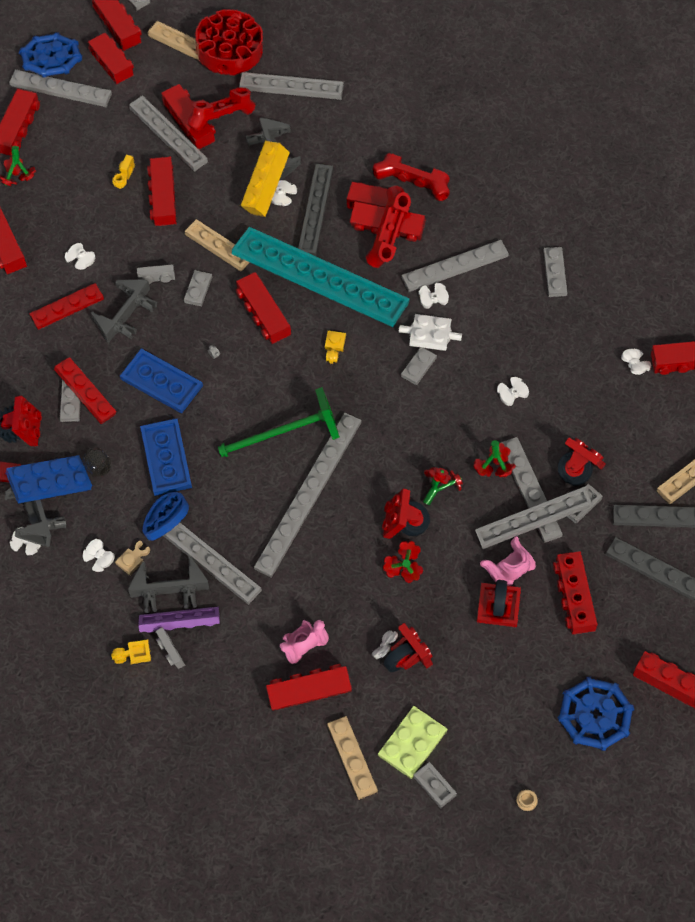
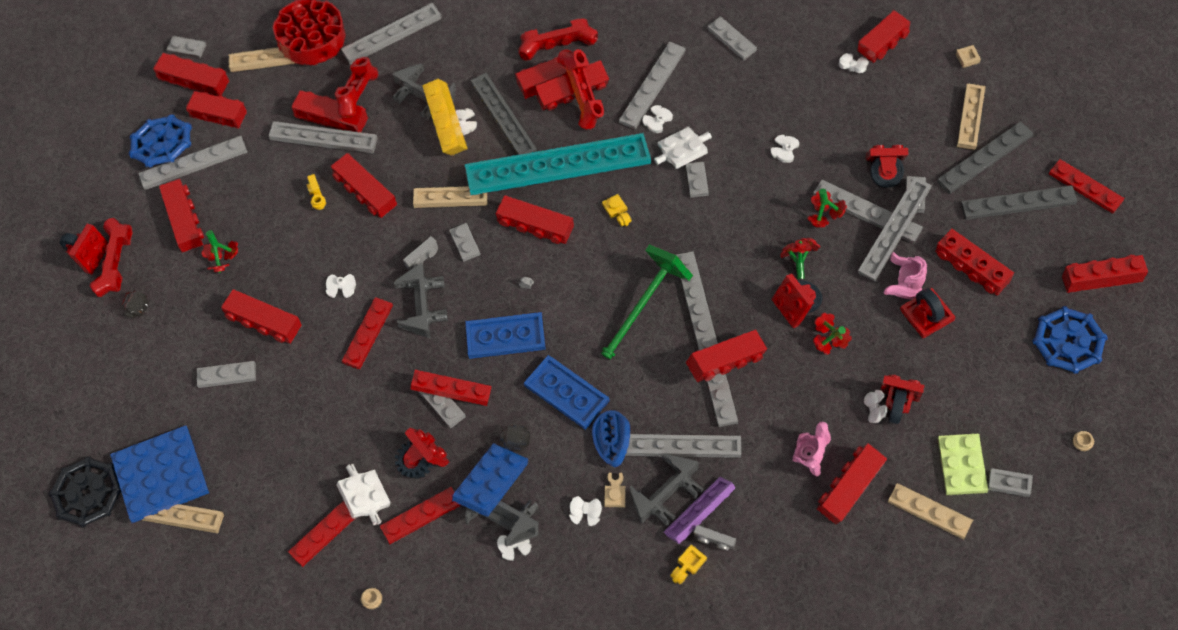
camera: 35 degrees left, 0 degrees up
(303, 517) = (726, 356): none -> red brick

